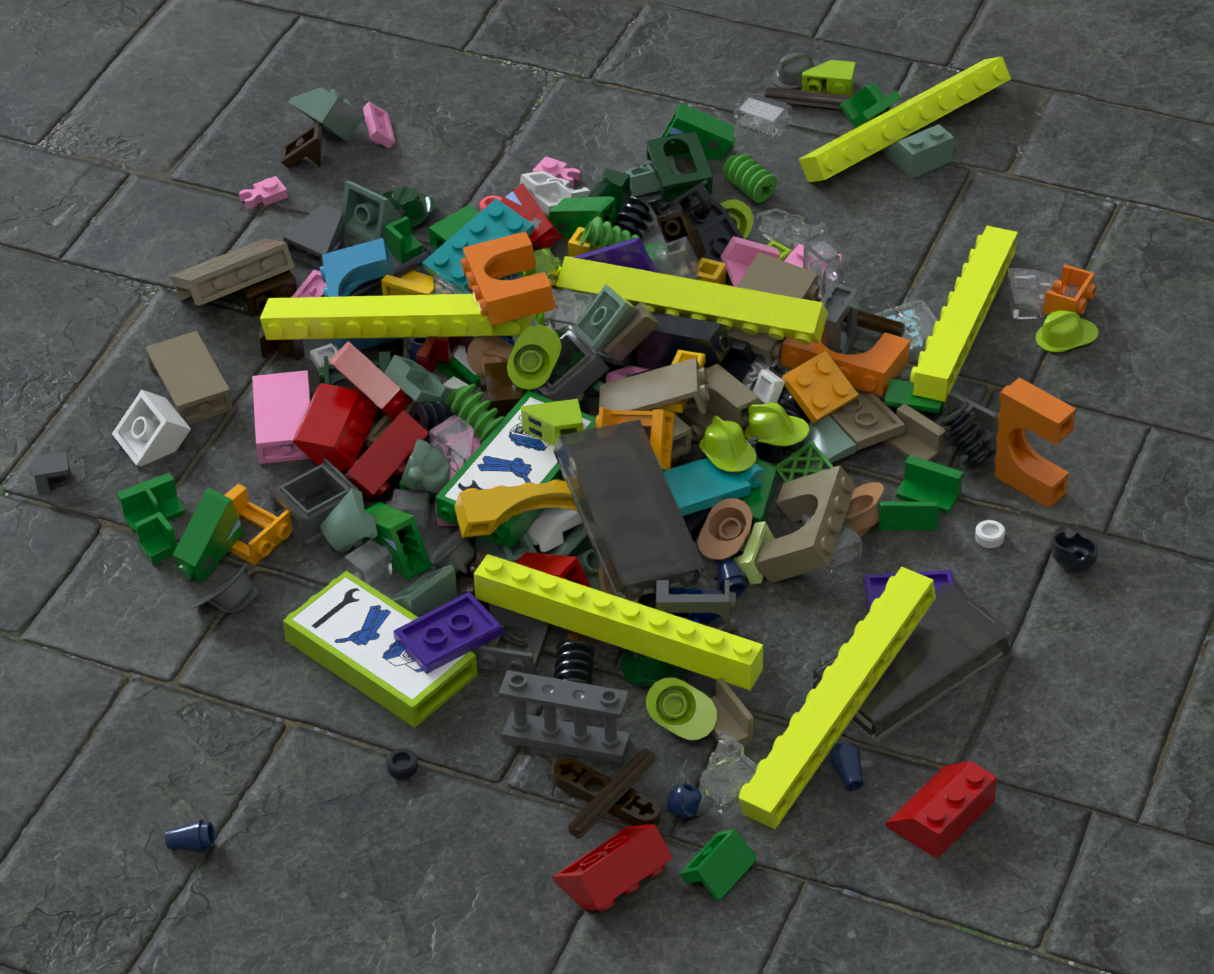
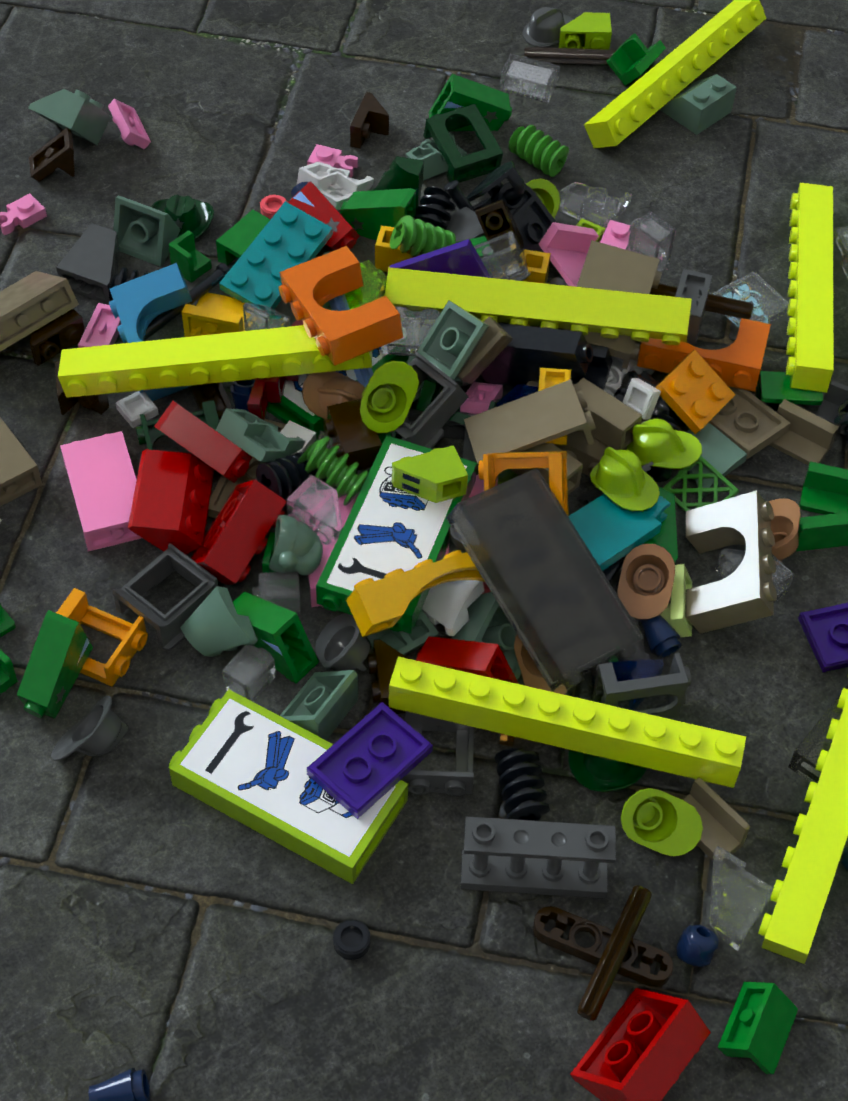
camera: 15 degrees left, 10 degrees up
(597, 138) = (368, 118): none -> dark brown slope

